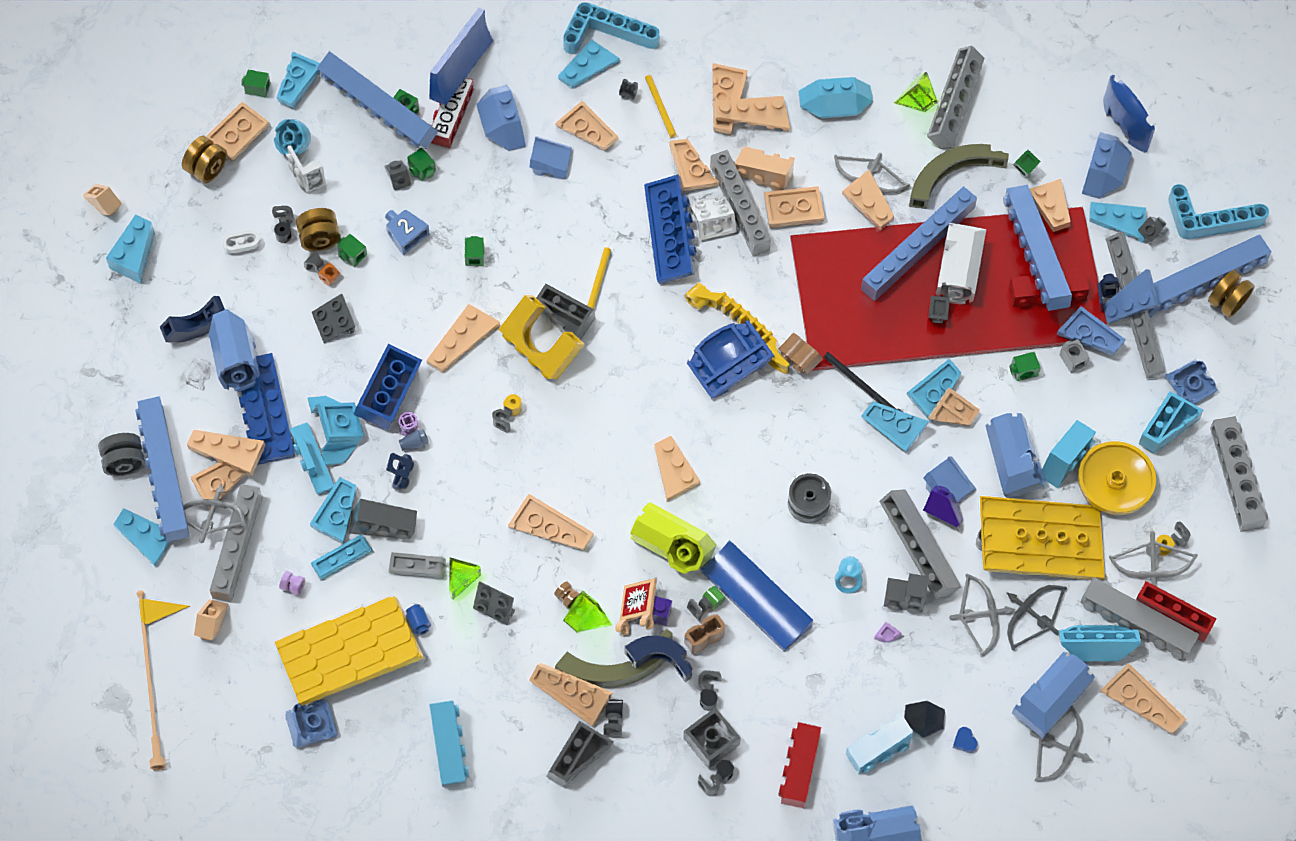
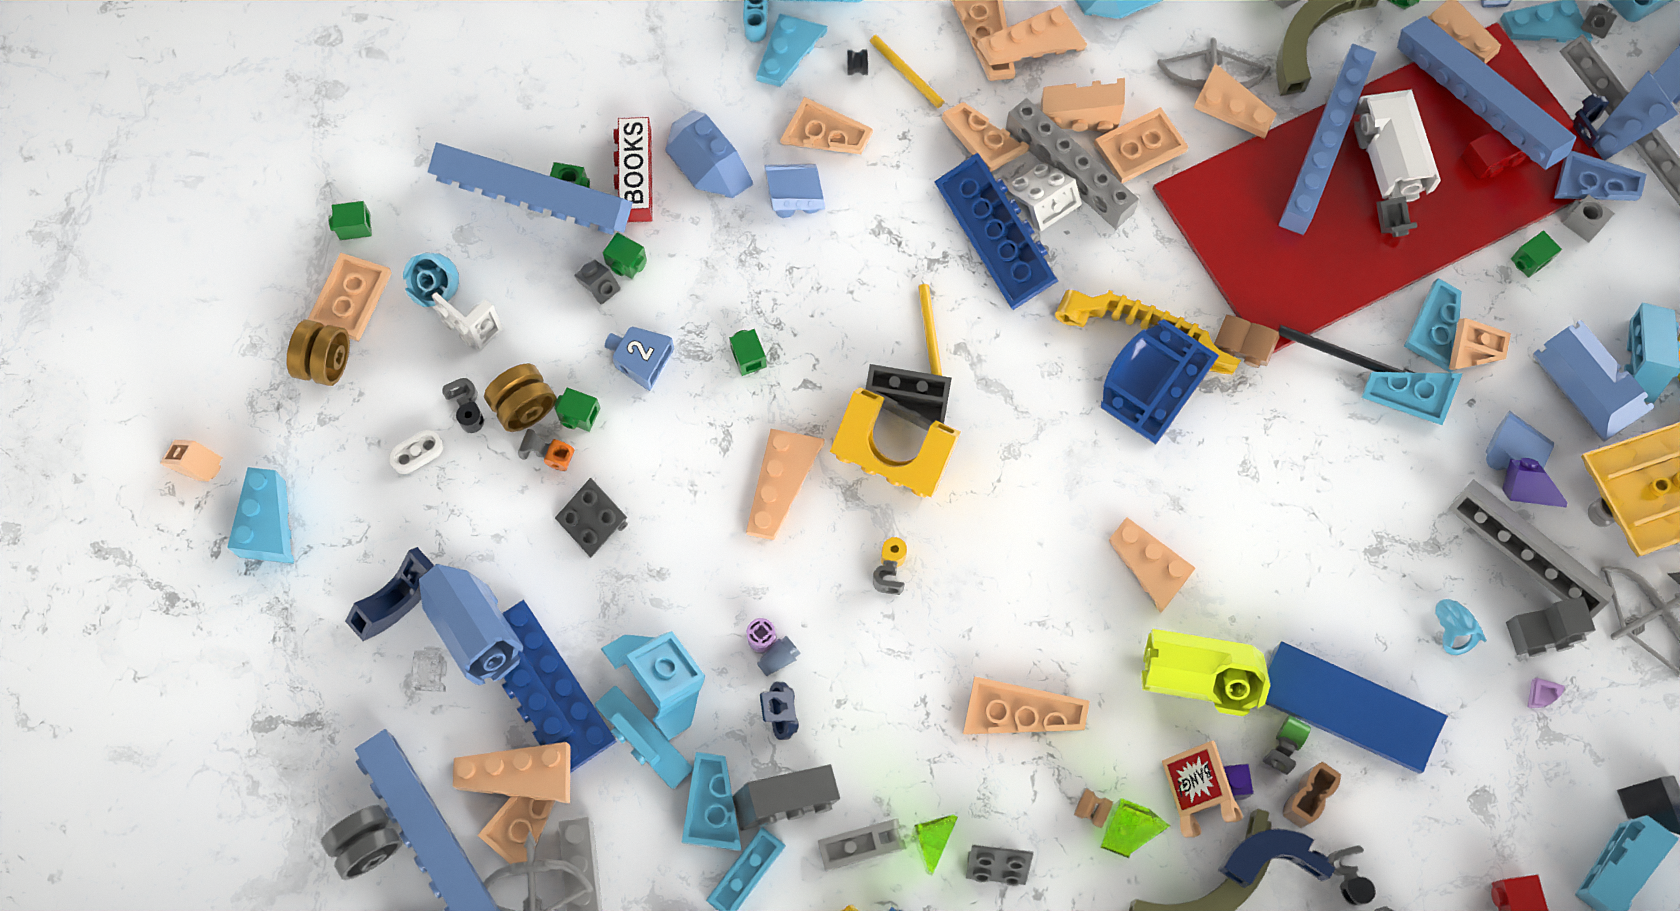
camera: 20 degrees left, 5 degrees up
(299, 77) = (406, 196): medium azure wing -> none
(387, 387) = (711, 592): blue brick -> none
(459, 58) = (621, 95): blue arch -> none
(809, 498) = (1356, 539): dark grey wheel -> none

